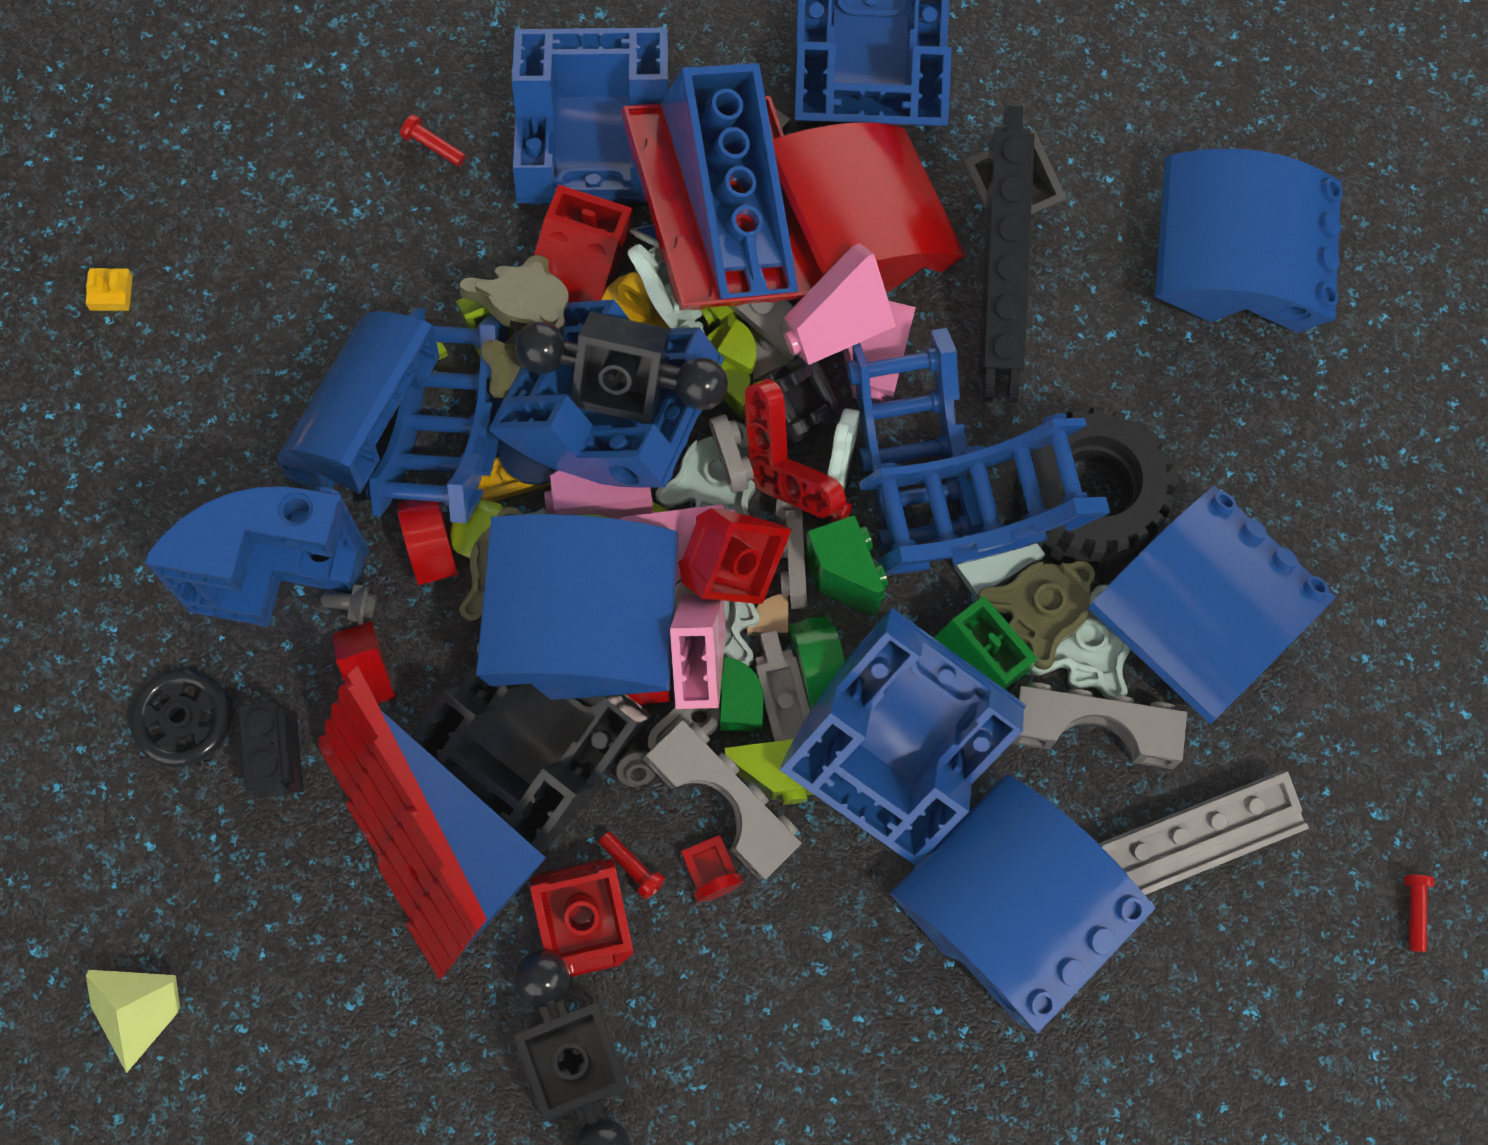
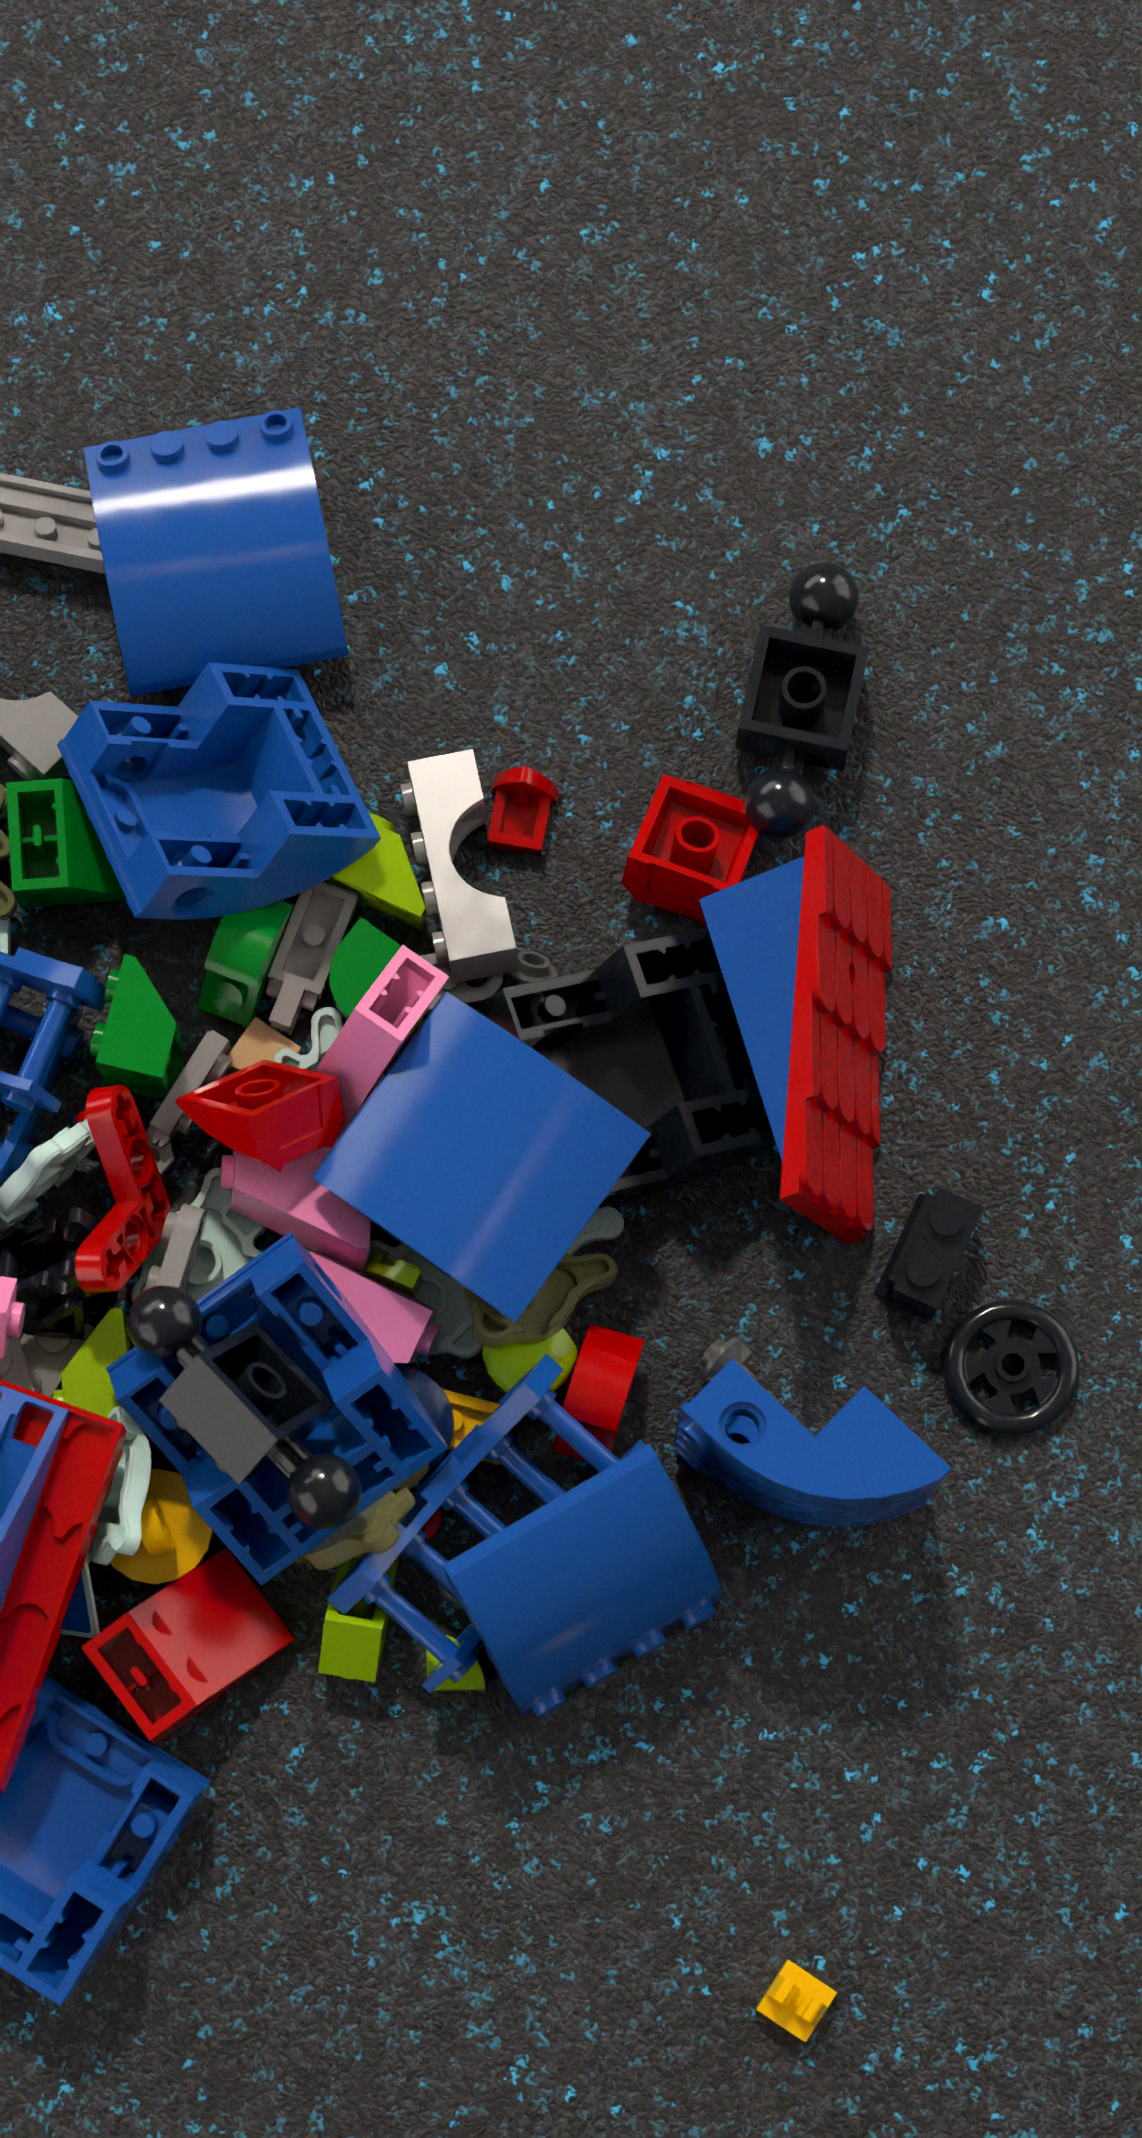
camera: 145 degrees left, 5 degrees up
(362, 648) = (765, 1295): red slope -> none
(412, 129) = (260, 1946): red piece -> none
(521, 293) = (294, 1601): olive tile -> none
(648, 883) = (598, 840): red piece -> none
(739, 347) = (77, 1375): lime tile -> none

